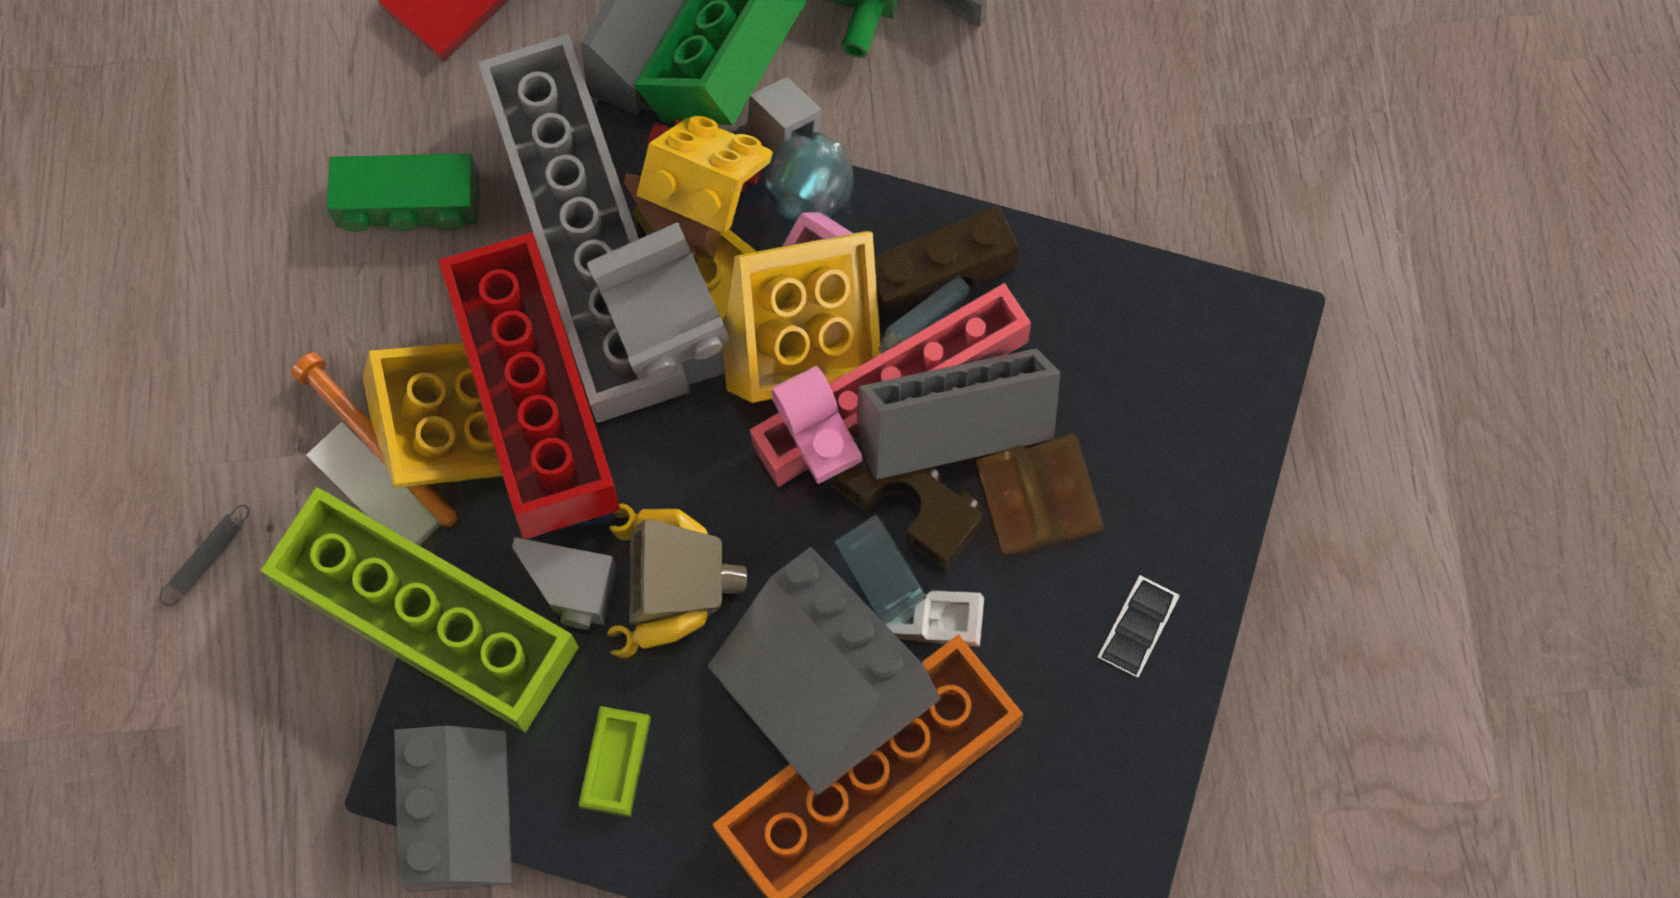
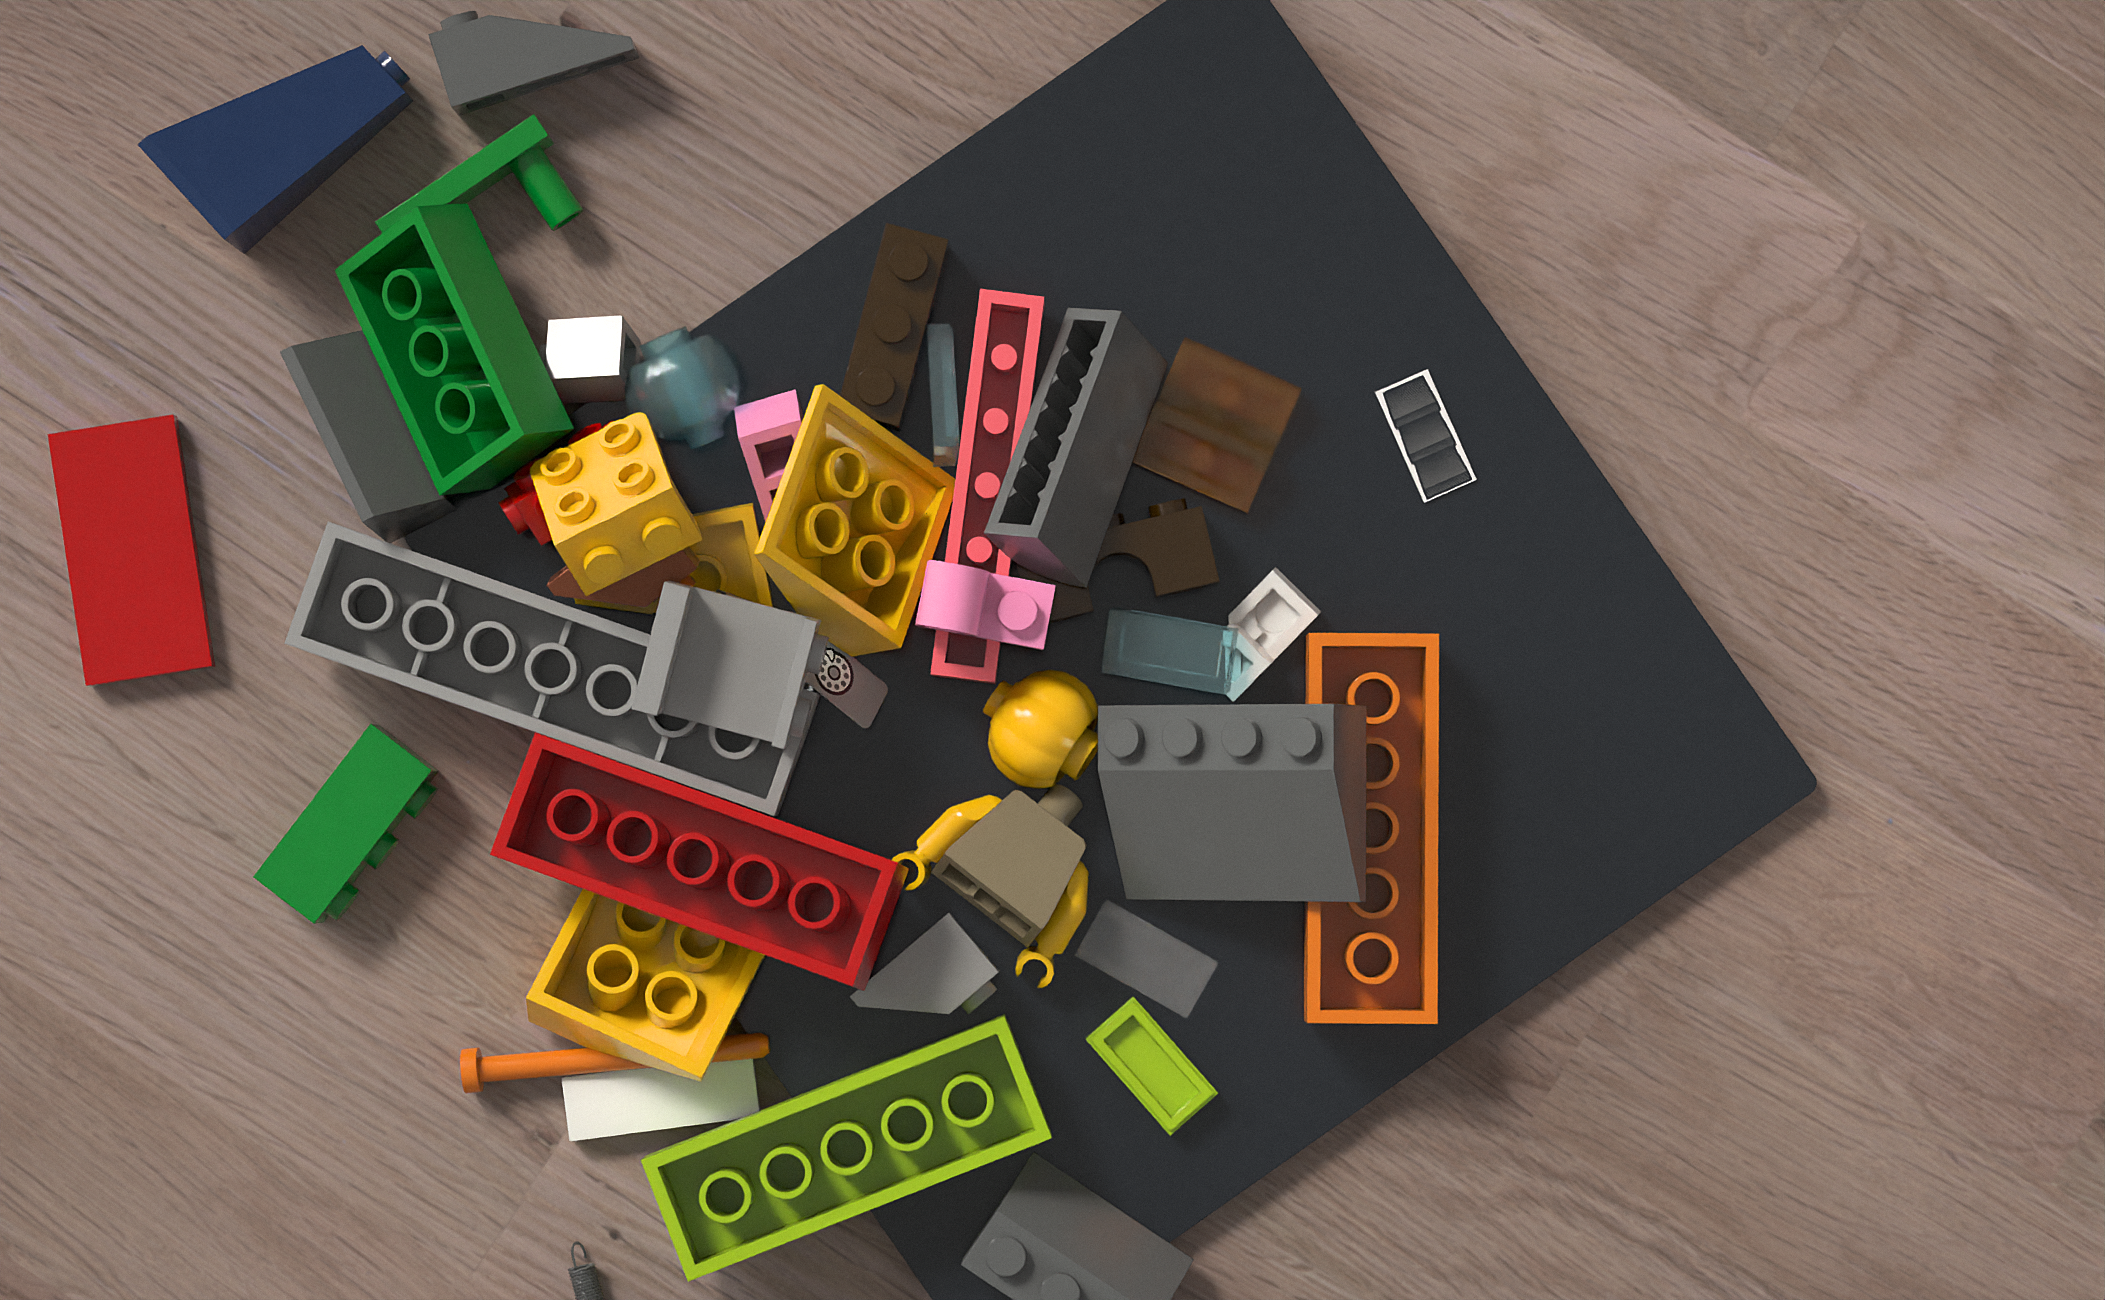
camera: 55 degrees left, 15 degrees up
(679, 706) = (1146, 958): none -> clear tile
(707, 394) = (849, 686): none -> light grey sticker
(770, 530) = (1042, 728): none -> yellow plant

